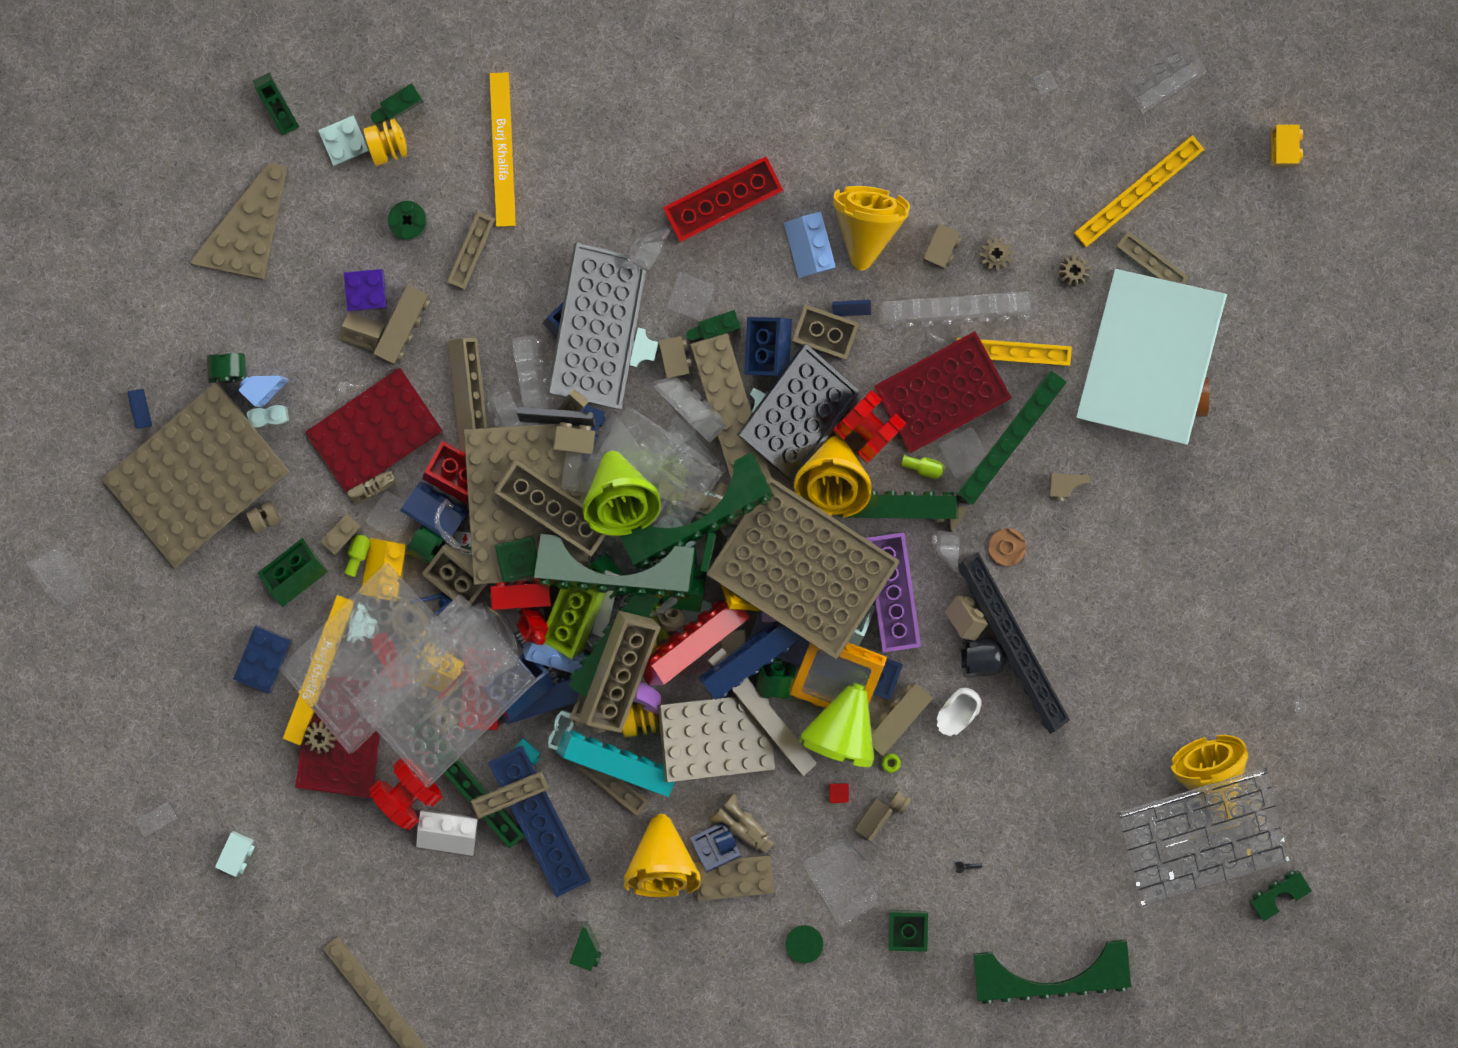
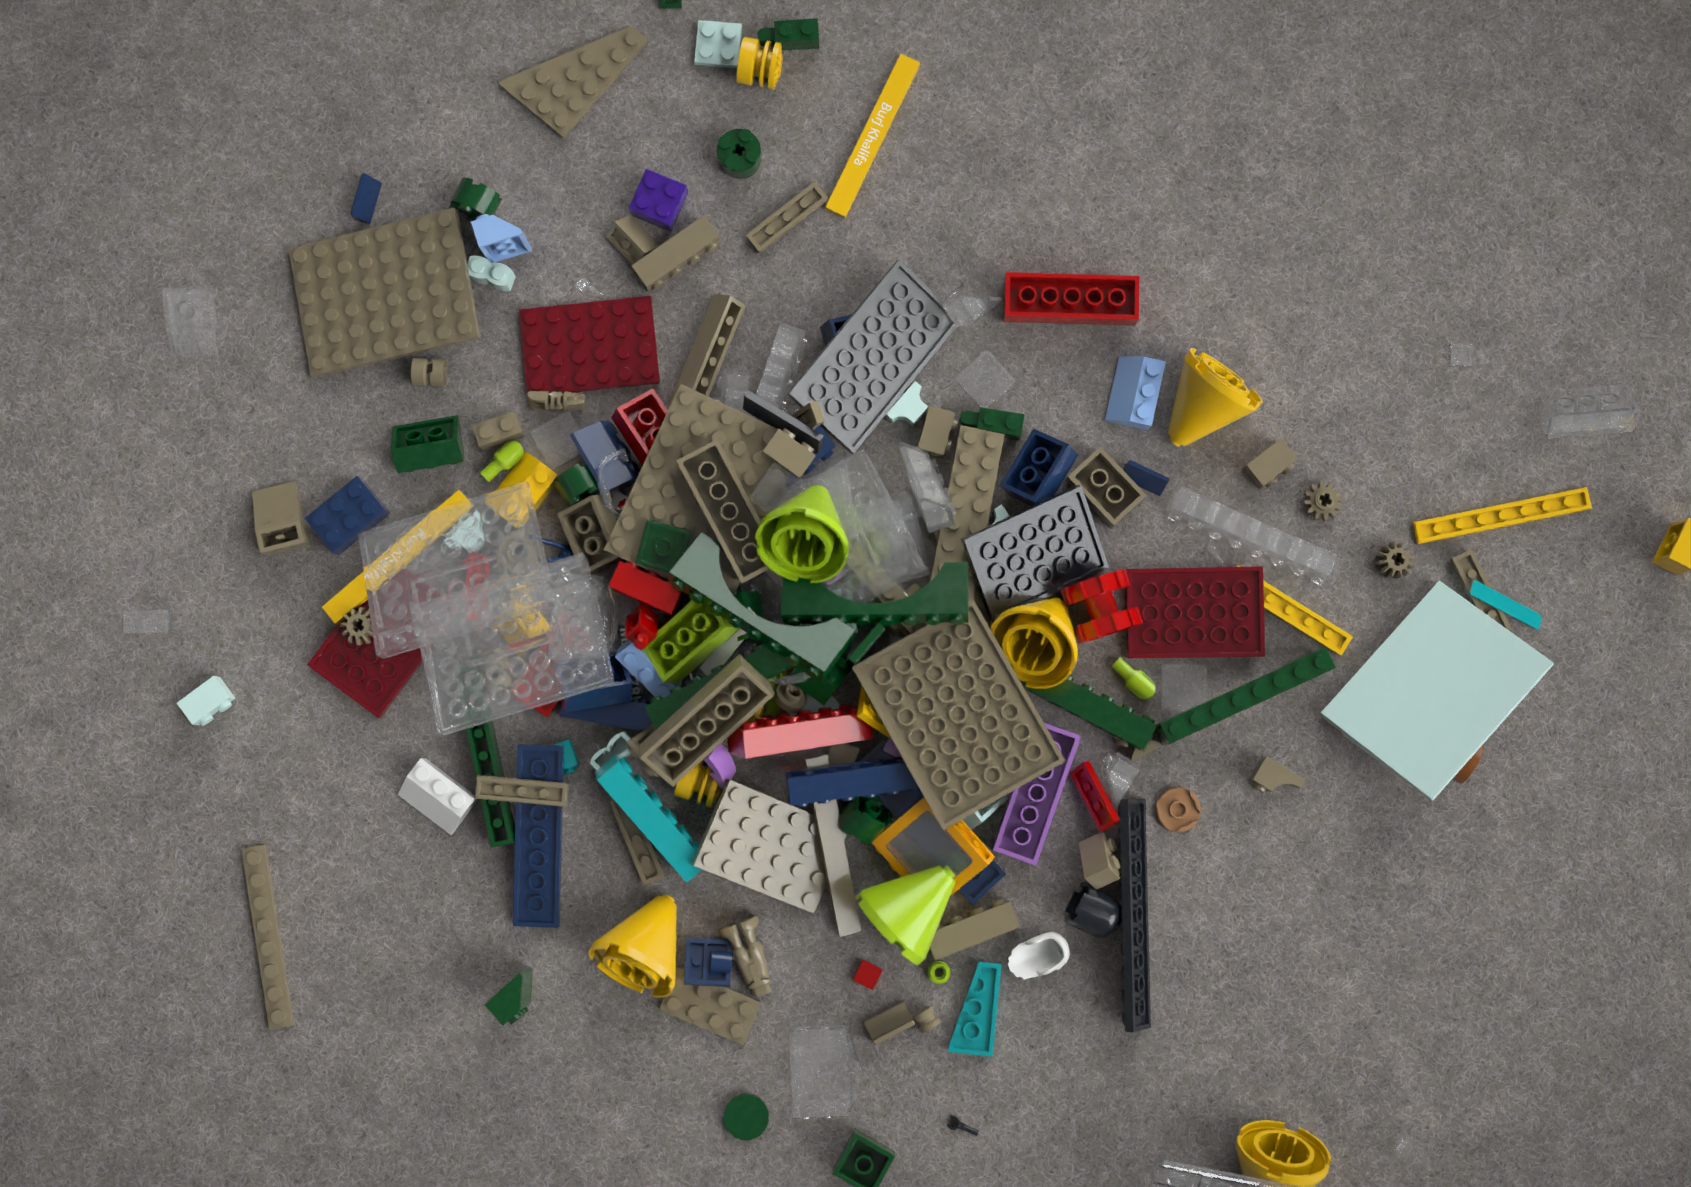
camera: 30 degrees right, 5 degrees down
(212, 688) = (279, 519): none -> dark tan slope
(397, 801) = (401, 735): red piece -> none
(937, 781) = (977, 1018): none -> teal wing
(938, 571) = (1094, 796): none -> red plate
(1175, 260) = (1505, 604): none -> teal sticker

